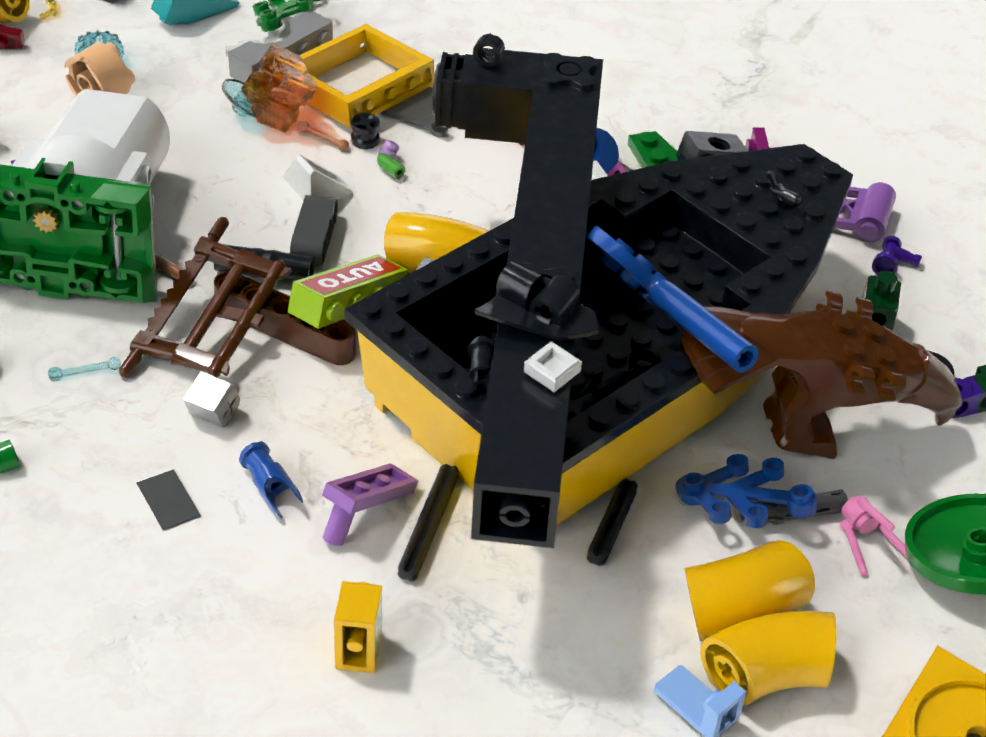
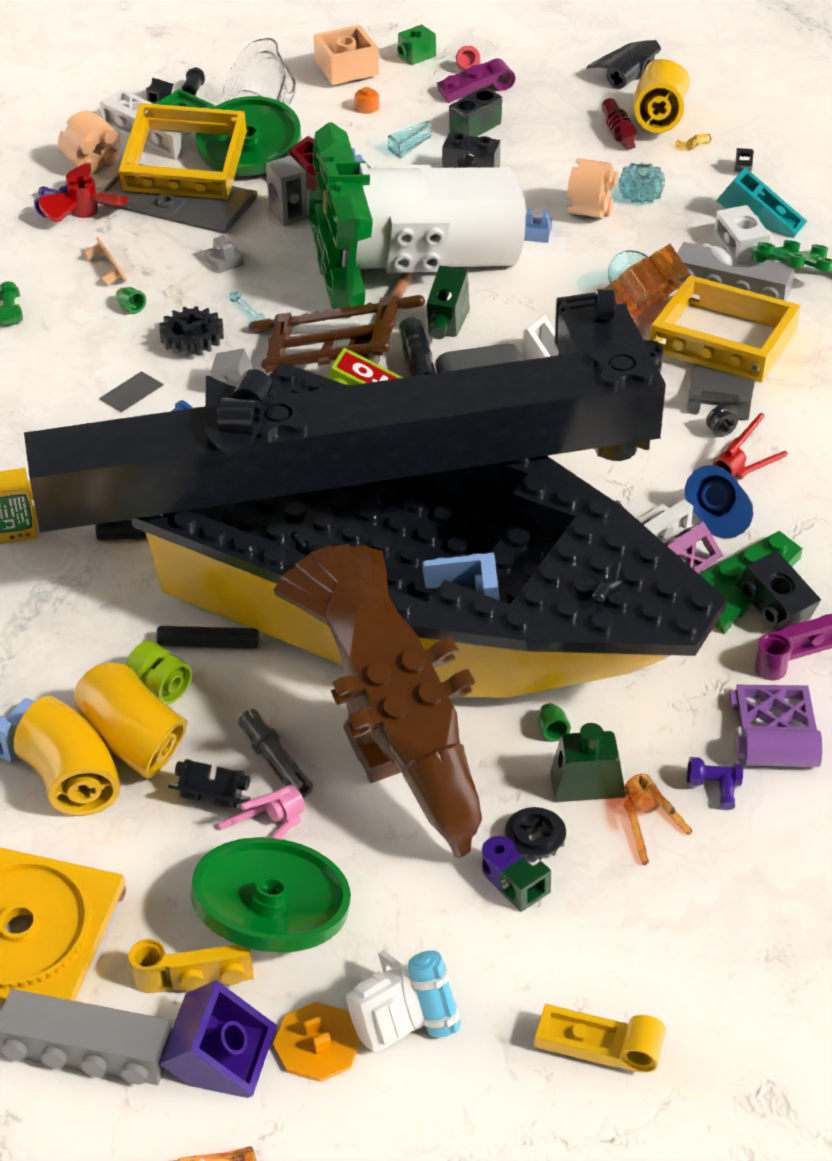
camera: 75 degrees right, 0 degrees up
(109, 417) = (191, 331): none -> black gear
(202, 207) = (444, 315): none -> dark green torso
(225, 24) = (739, 231): none -> white brick
(552, 366) = (167, 437): white tile -> none
(663, 563) = (160, 671): none -> lime wheel
(674, 302) = (391, 506): blue piece -> none
(700, 489) = (268, 682): blue plant -> none
(716, 266) = (464, 570): none -> light blue bracket
(831, 556) = (196, 782): none -> black hinge
(910, 298) = (646, 797): none -> clear orange plant

